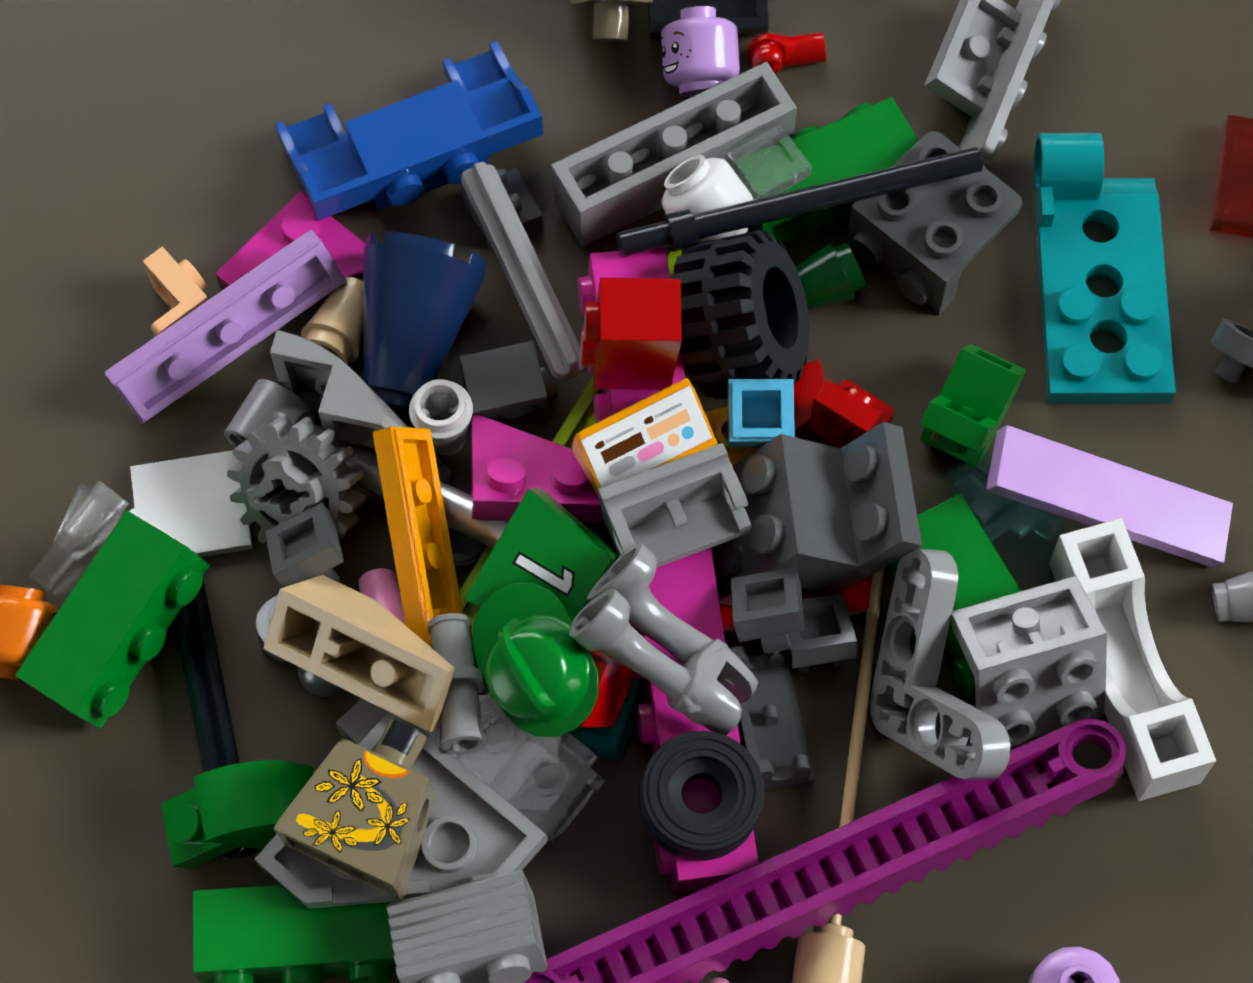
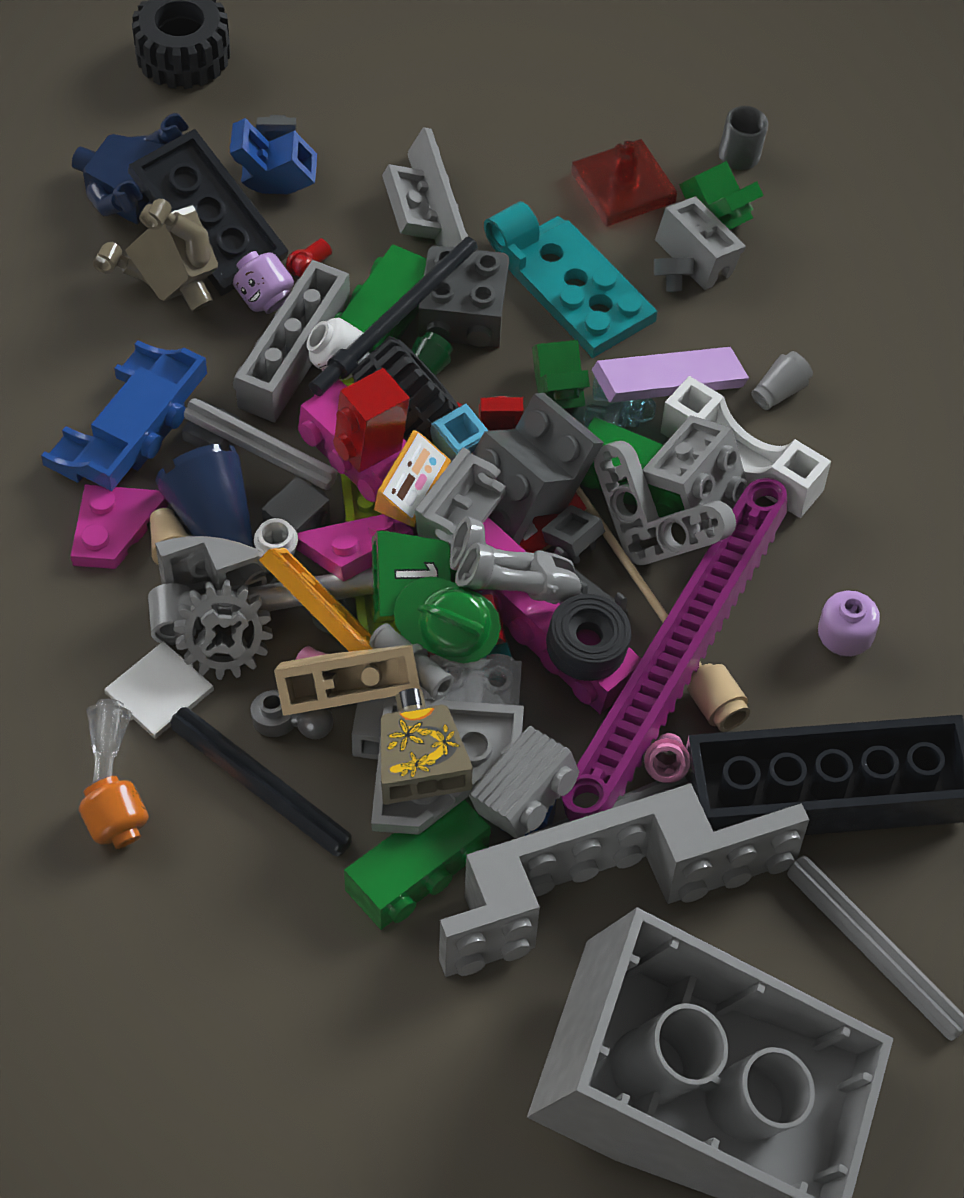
camera: 40 degrees left, 10 degrees down
(114, 620) = (174, 765): green brick -> none
(177, 285) = (62, 578): light nougat bracket -> none
(226, 326) = (106, 576): lavender tile -> none
(230, 809) = (331, 812): green brick -> none
(305, 547) = (259, 652): dark grey tile -> none
(768, 161) = (355, 308): clear tile -> none
(768, 607) = (546, 525): dark grey tile -> none

